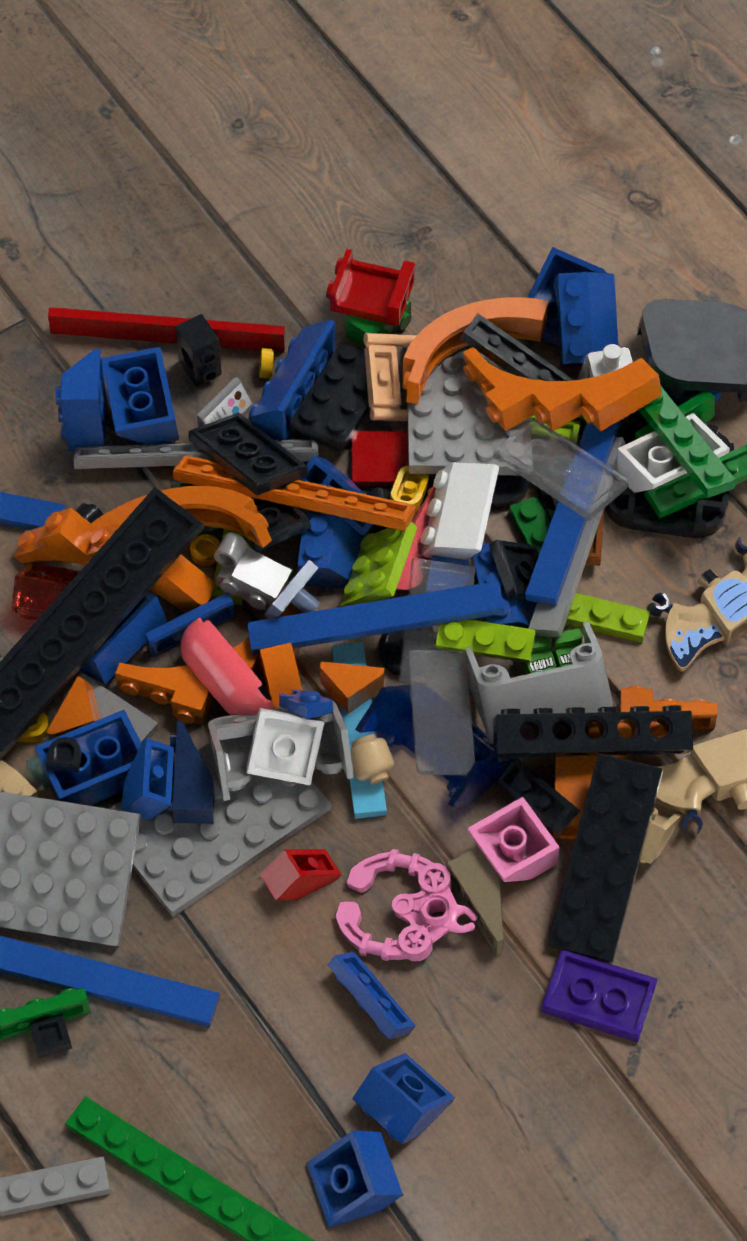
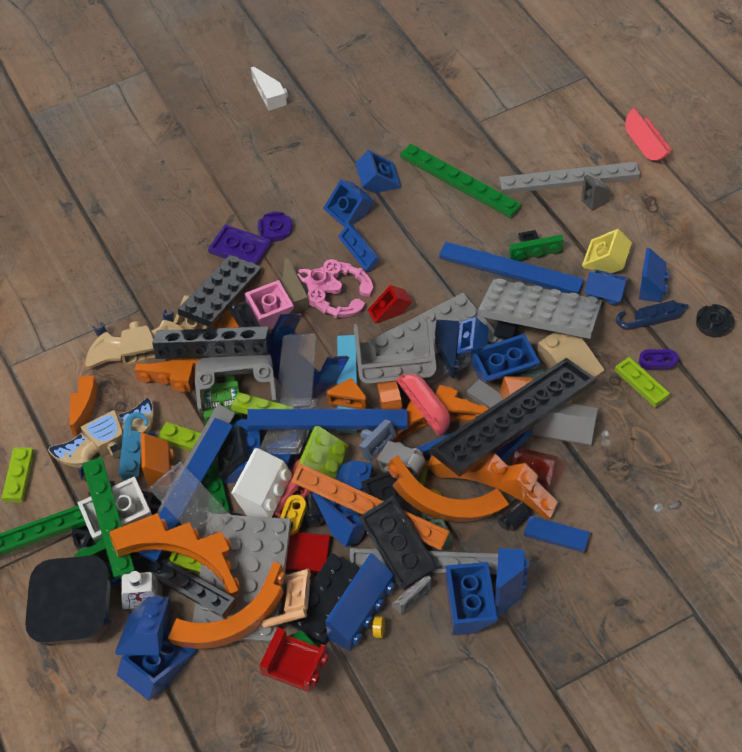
camera: 170 degrees left, 5 degrees down
(64, 755) = (521, 352): black tile -> none
(161, 328) = (449, 660): red tile -> none
(198, 350) = (426, 628): black brick -> none
(284, 746) = (391, 350): white plate -> none
(306, 704) = (375, 364): blue plate -> none
(371, 759) = (343, 347): tan head -> none
(541, 1046) = (275, 226): none -> dark purple tile
(636, 557) = (155, 458): none -> orange slope
(683, 576) = (131, 448): none -> dark azure plate

